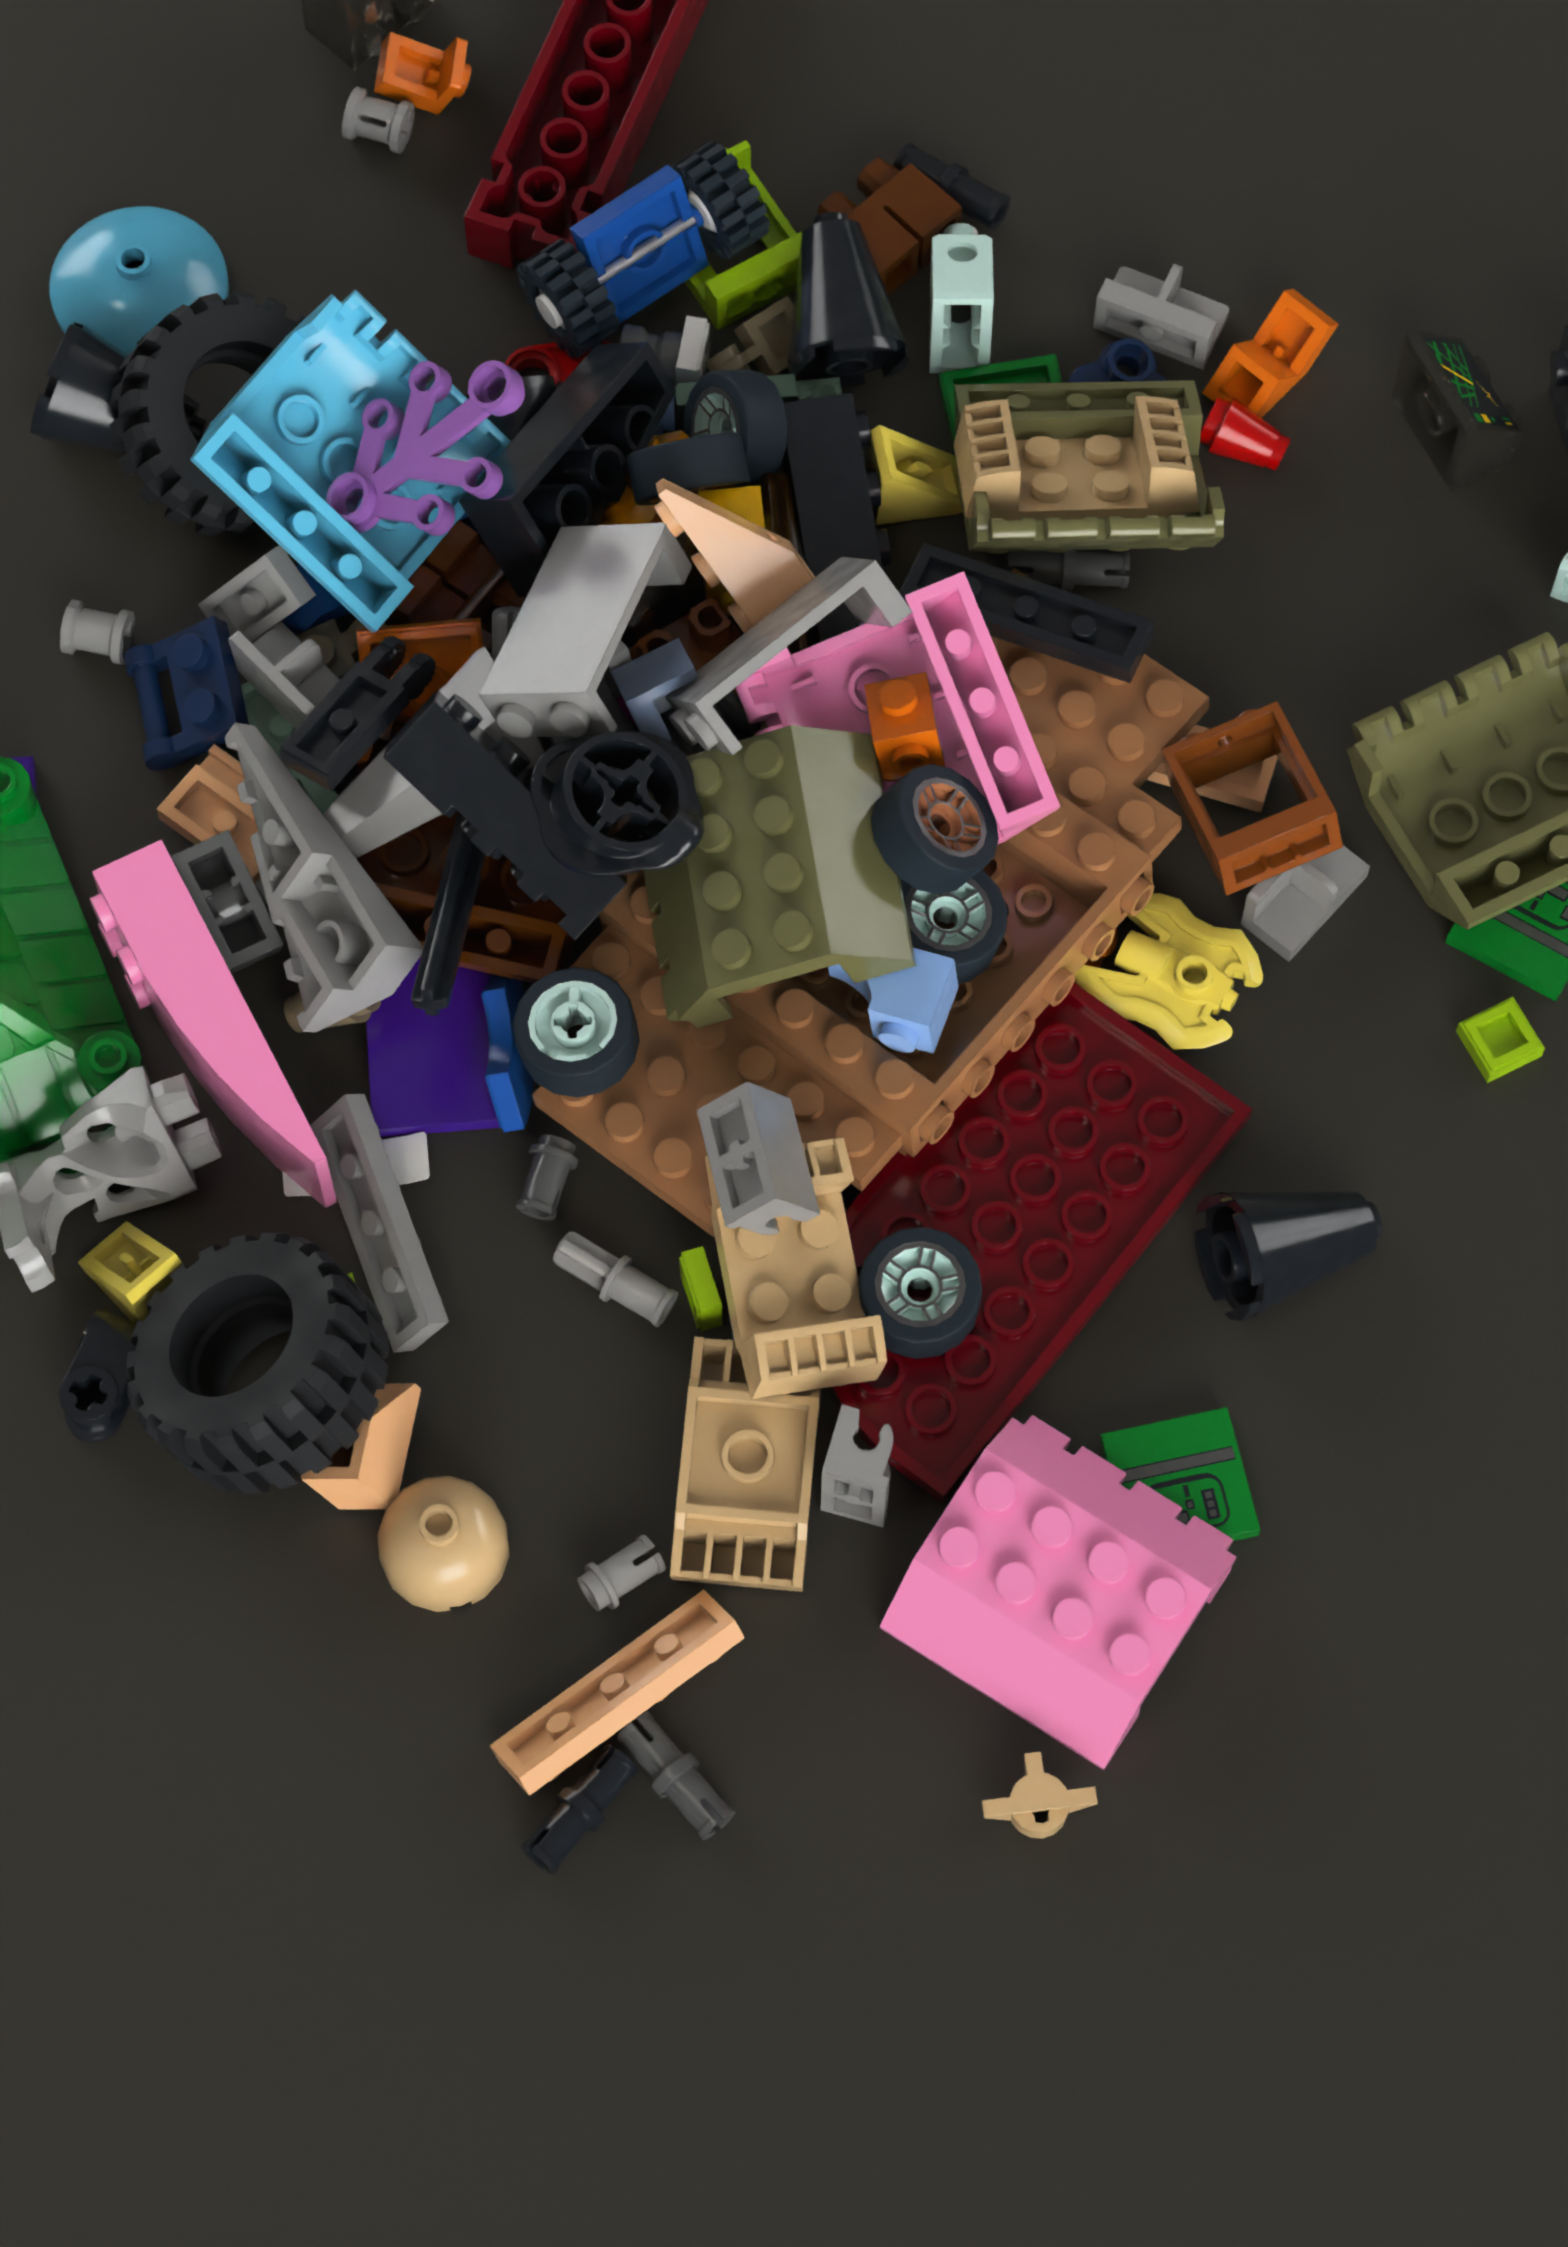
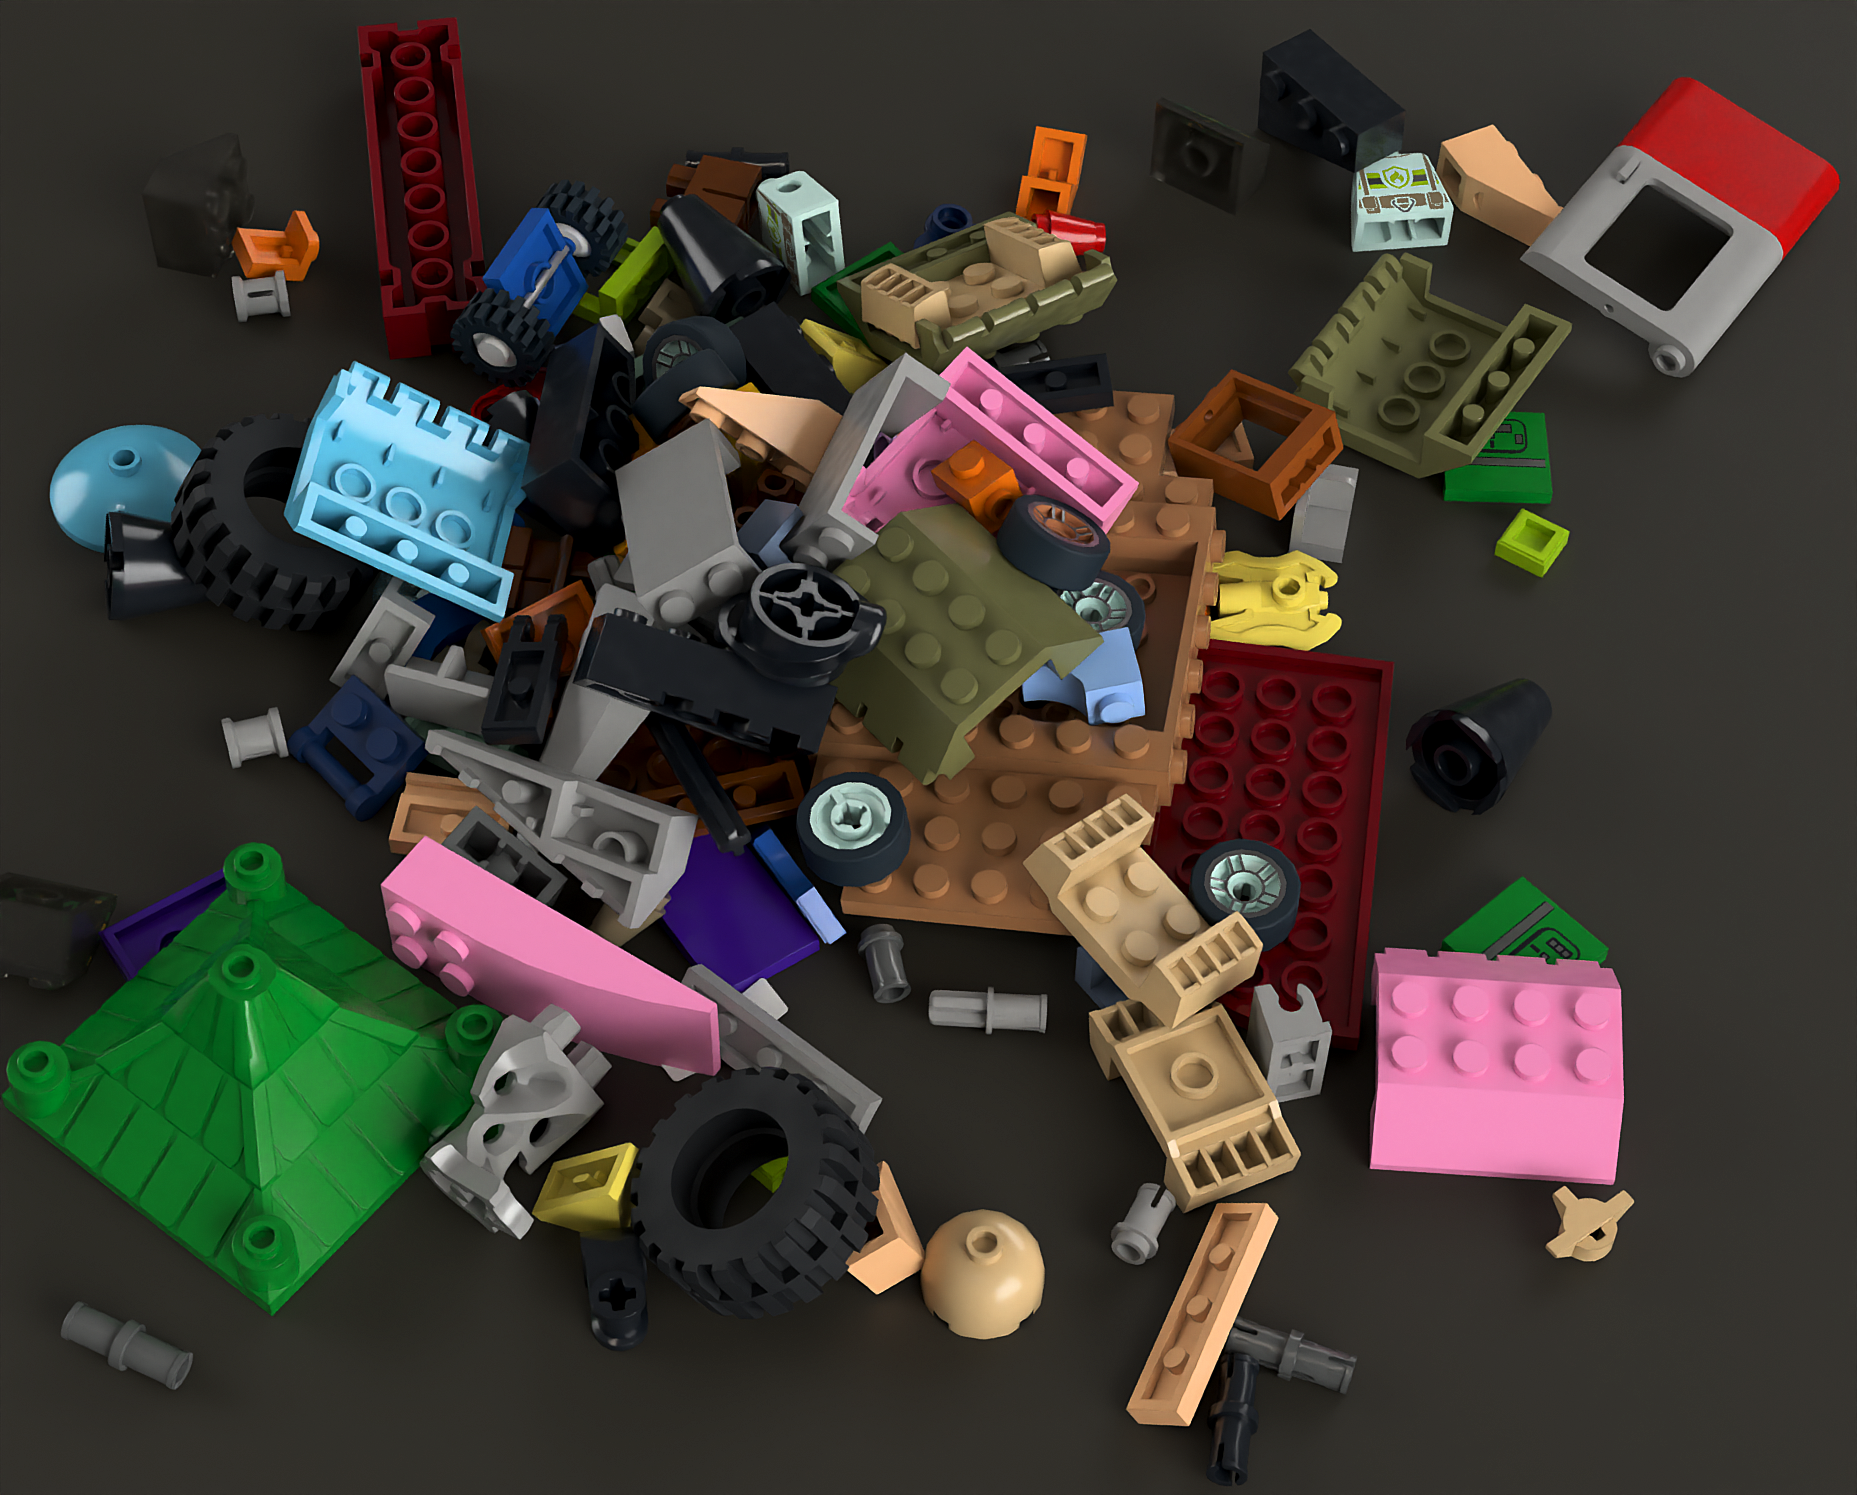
camera: 30 degrees left, 15 degrees down
(419, 449) = (471, 463): medium lavender plant -> none
(700, 1289) = (1065, 982): lime tile -> none
(757, 1159) = (1076, 829): light grey hinge -> none
(1160, 315) = (970, 186): light grey panel -> none

